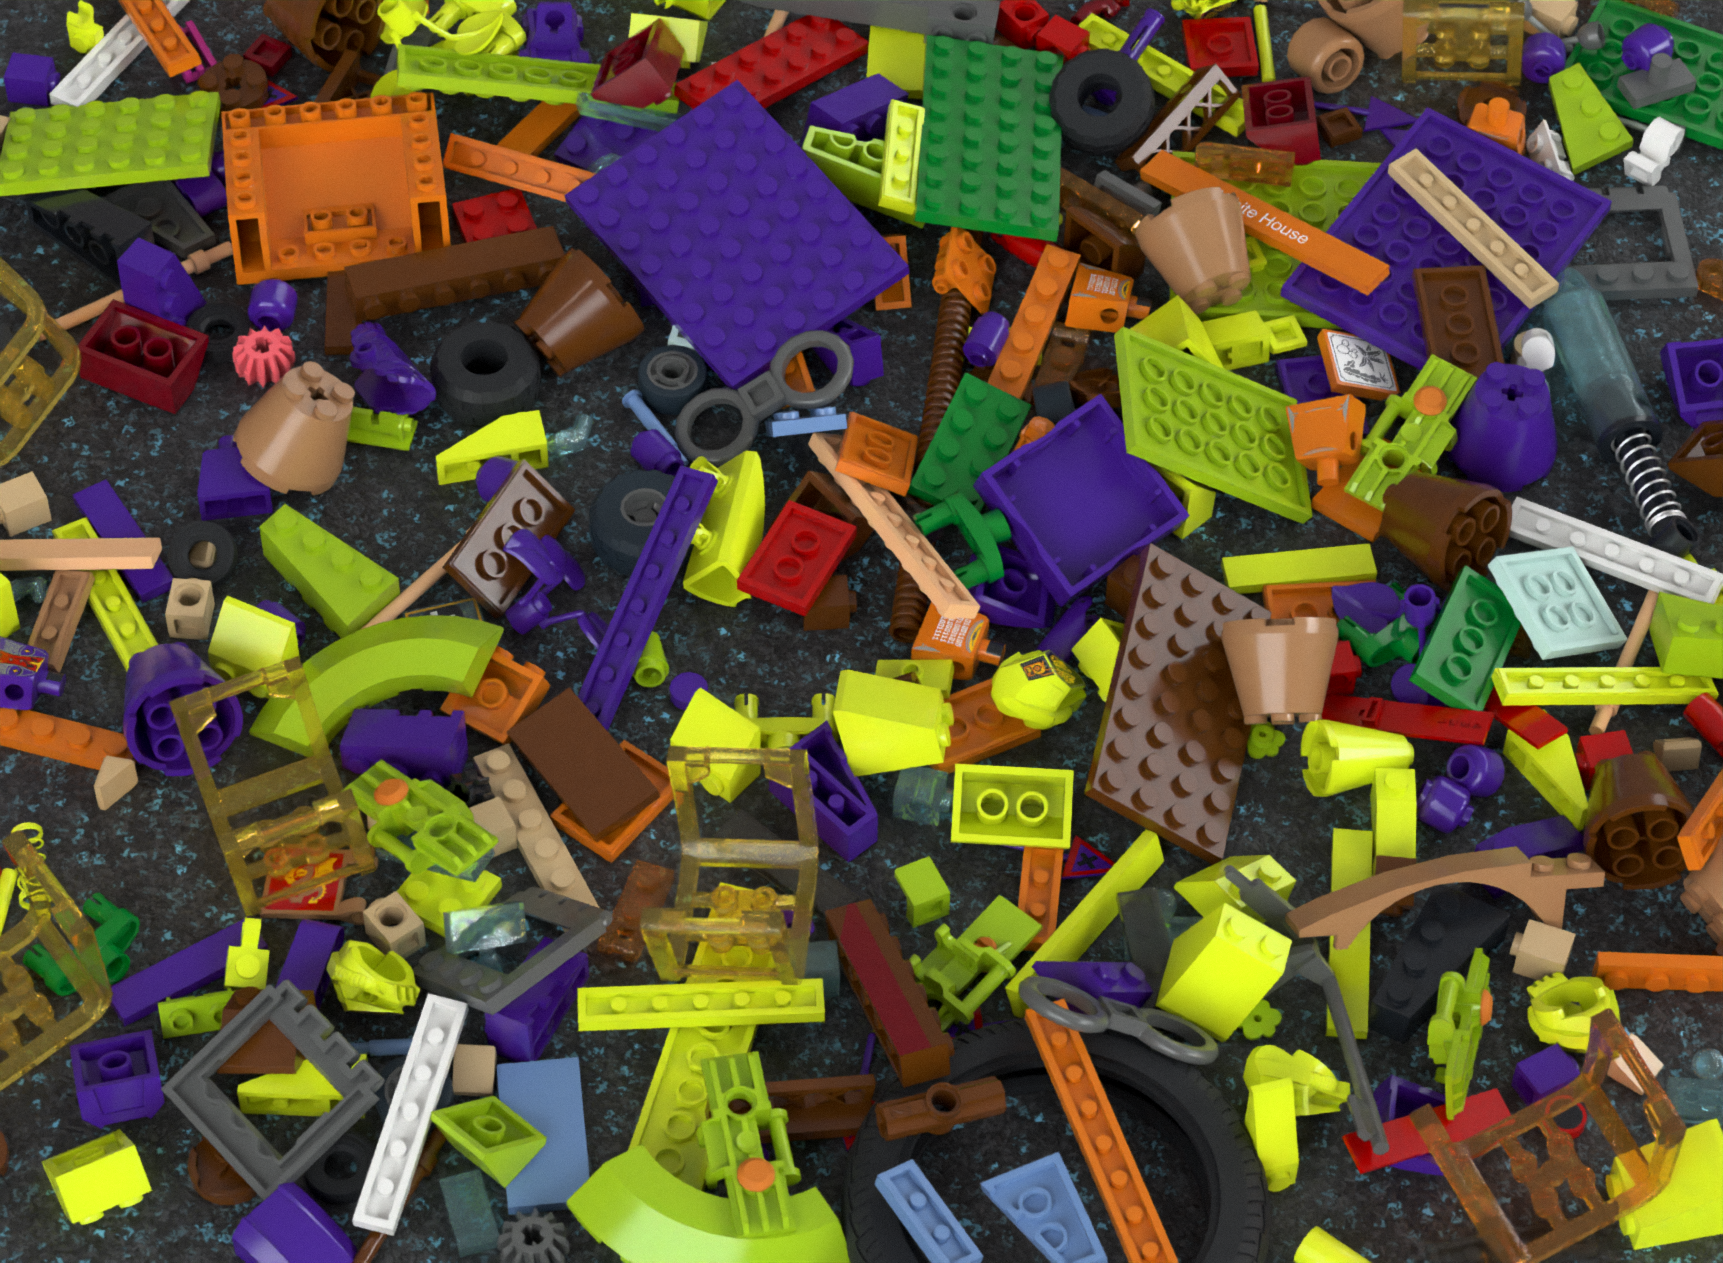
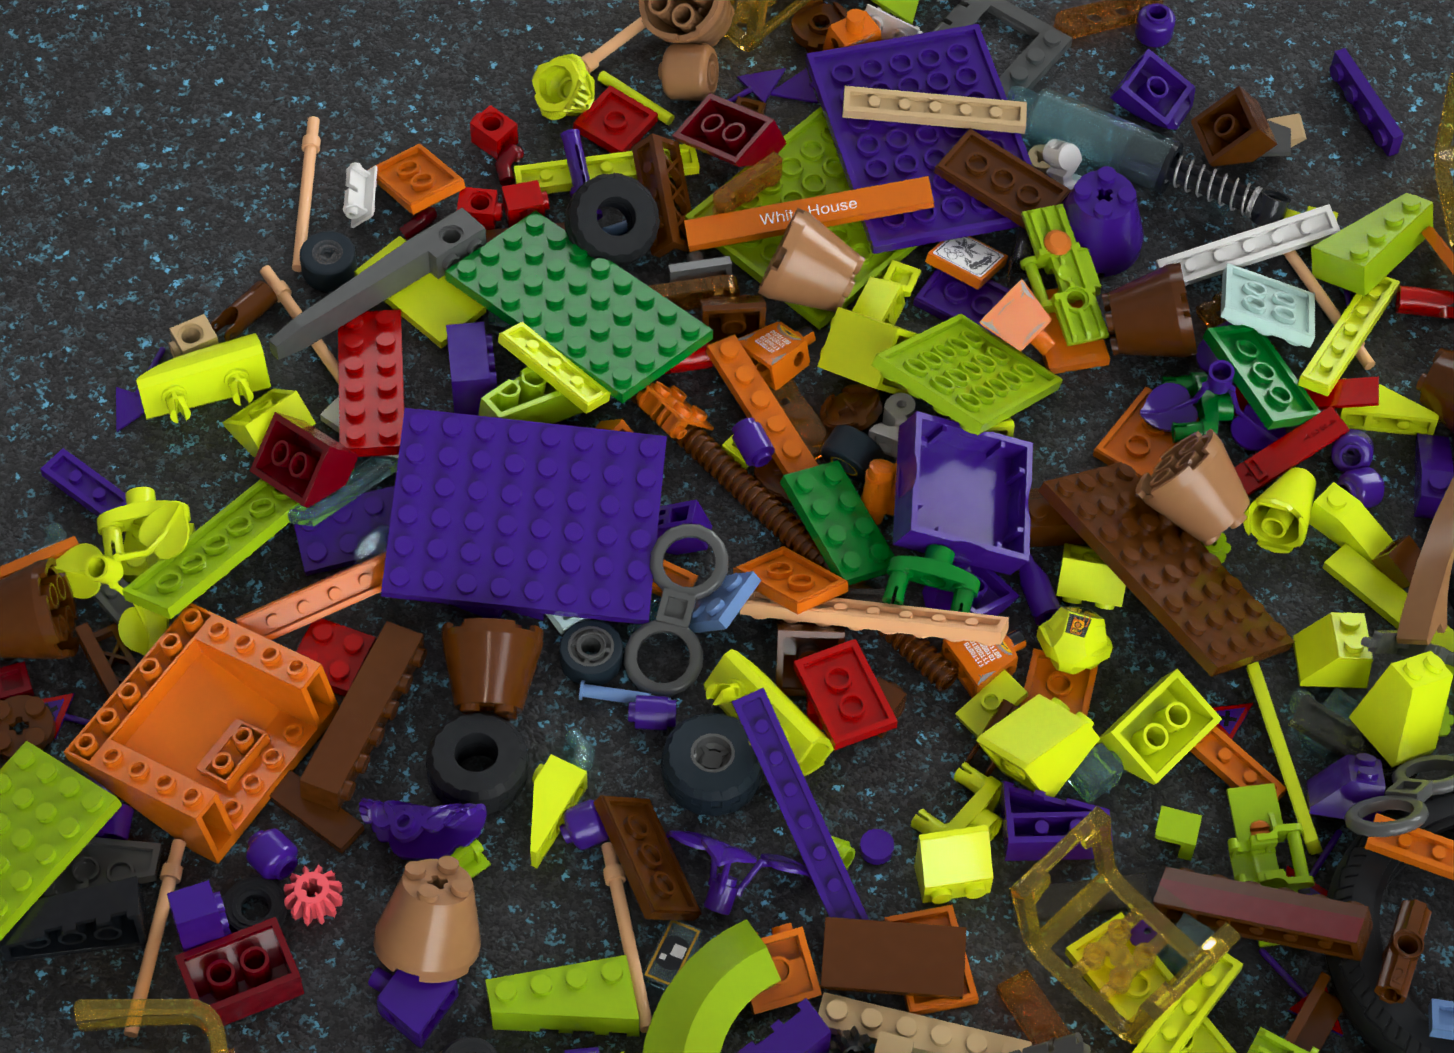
camera: 50 degrees left, 5 degrees up
(540, 128) = (270, 571): orange tile -> none
(554, 33) = (201, 488): dark purple piece -> none
(1328, 564) = (1096, 420): neon yellow tile -> none
(1596, 748) = (1402, 373): red brick -> none
(1678, 753) = (1421, 337): tan slope -> none

